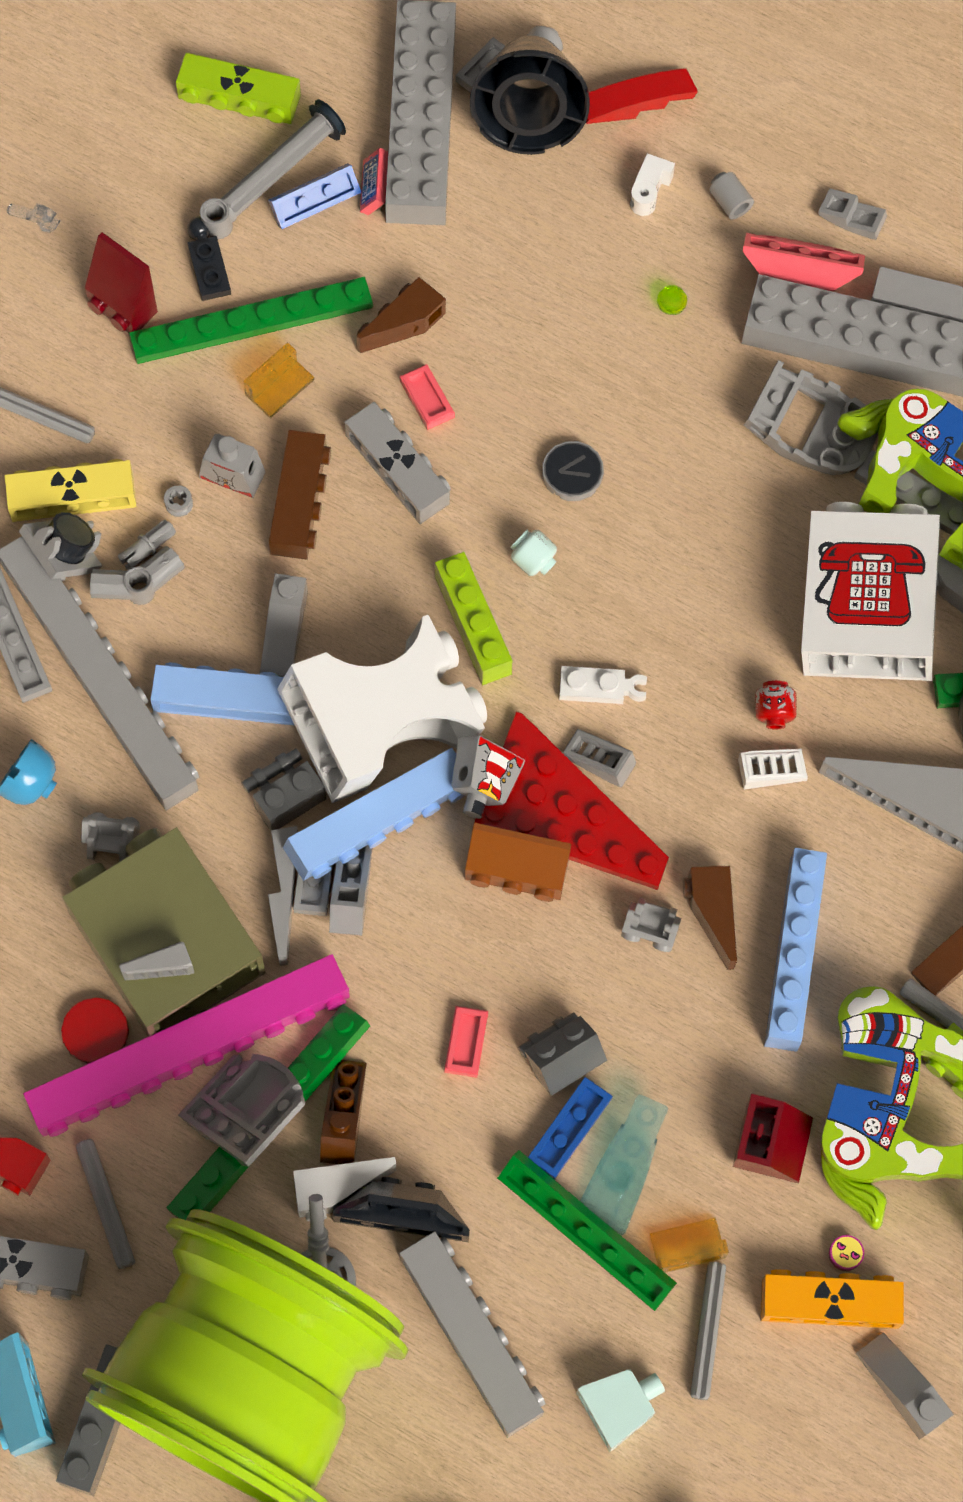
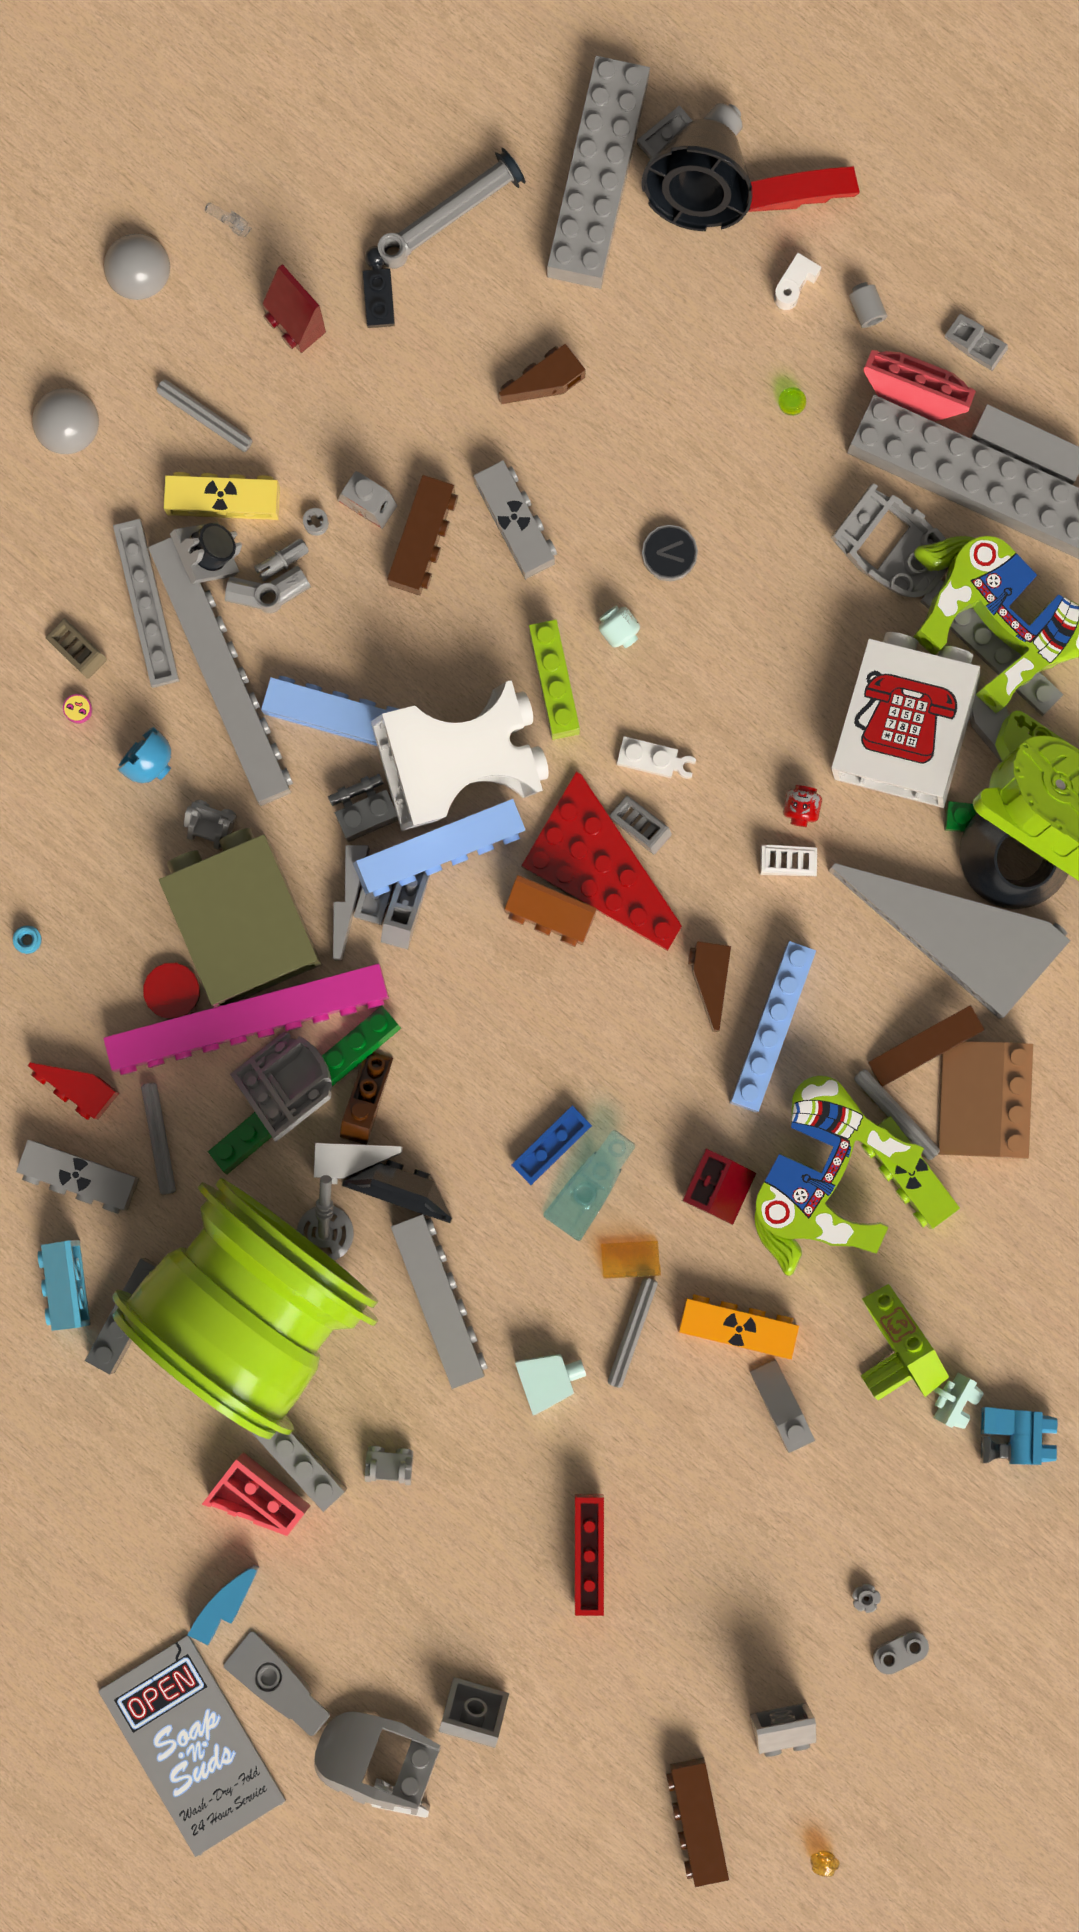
camera: 15 degrees right, 15 degrees up
(161, 963) = (238, 954): light grey slope -> none
(238, 88) = (434, 120): lime brick -> none
(251, 320) = (408, 356): green plate -> none
(277, 381) = (422, 422): clear yellow panel -> none
(284, 623) = (388, 657): light grey slope -> none
(314, 196) = (486, 242): plate -> none
(374, 181) = (542, 236): coral tile -> none
(427, 397) = (553, 458): coral tile -> none
(466, 1041) = (479, 1055): coral tile -> none
(484, 773) = (535, 829): light grey torso -> none
(563, 1052) = (557, 1080): dark grey brick -> none
(587, 1230) = (548, 1233): green plate -> none
(651, 923) = (654, 983): light grey piece -> none
(846, 1253) = (759, 1289): tile -> none

